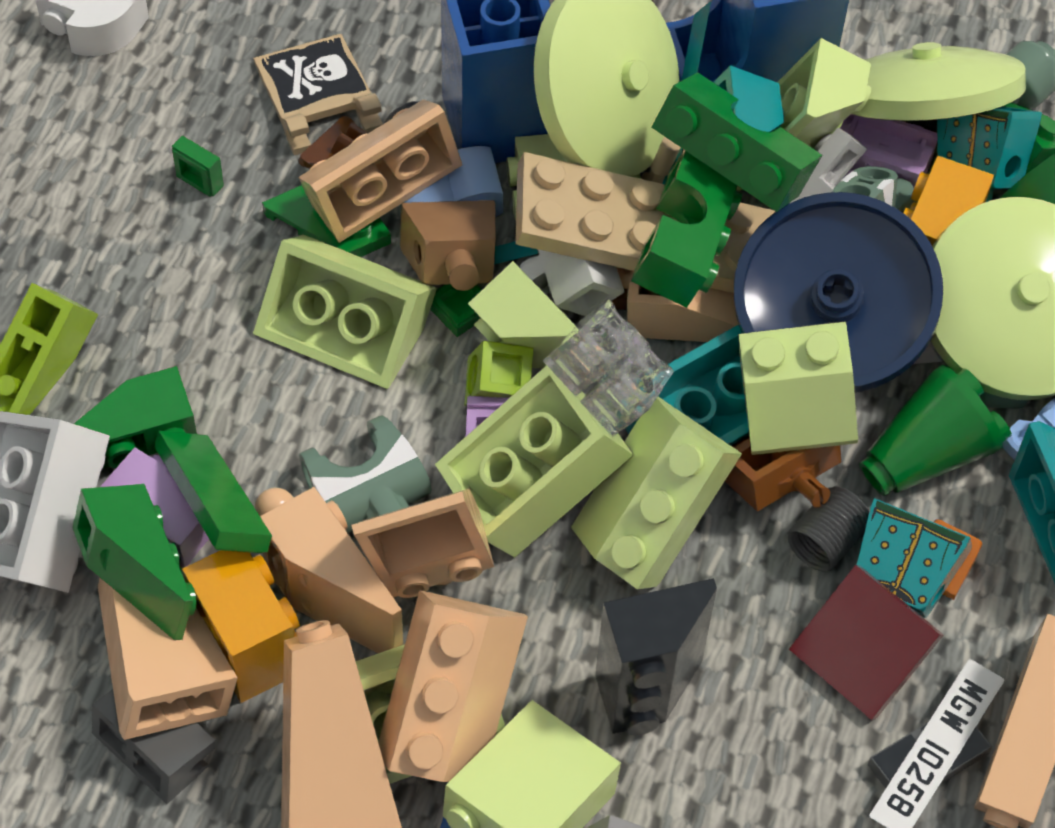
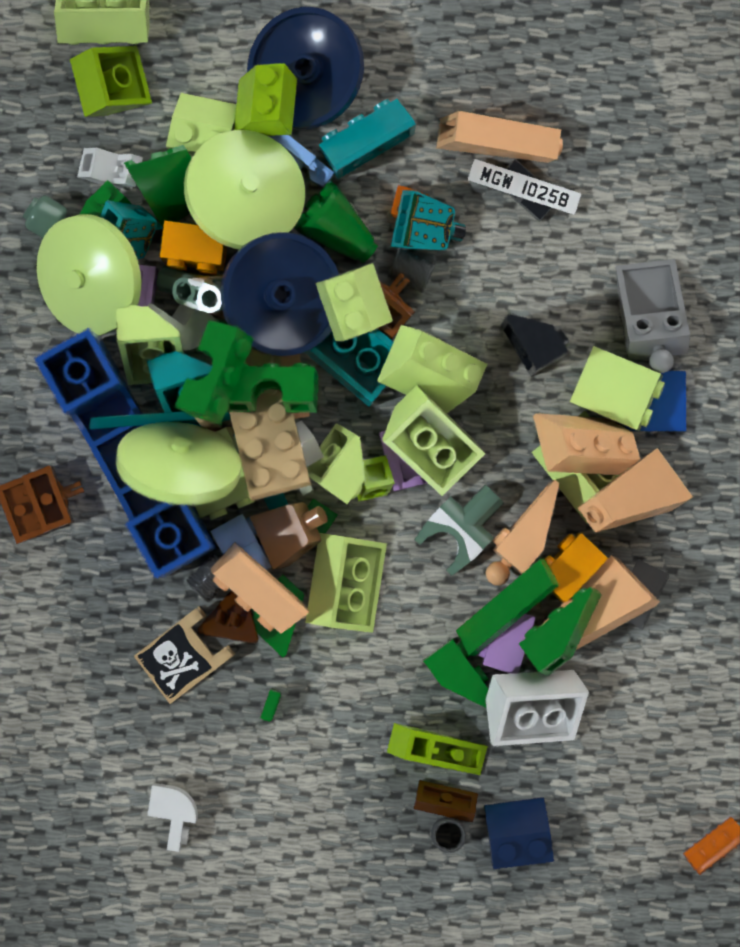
camera: 105 degrees left, 30 degrees up
(426, 544) = (508, 481): light nougat slope -> none
(621, 362) = (382, 407): clear hips -> none
(865, 642) = (478, 236): dark red tile -> none

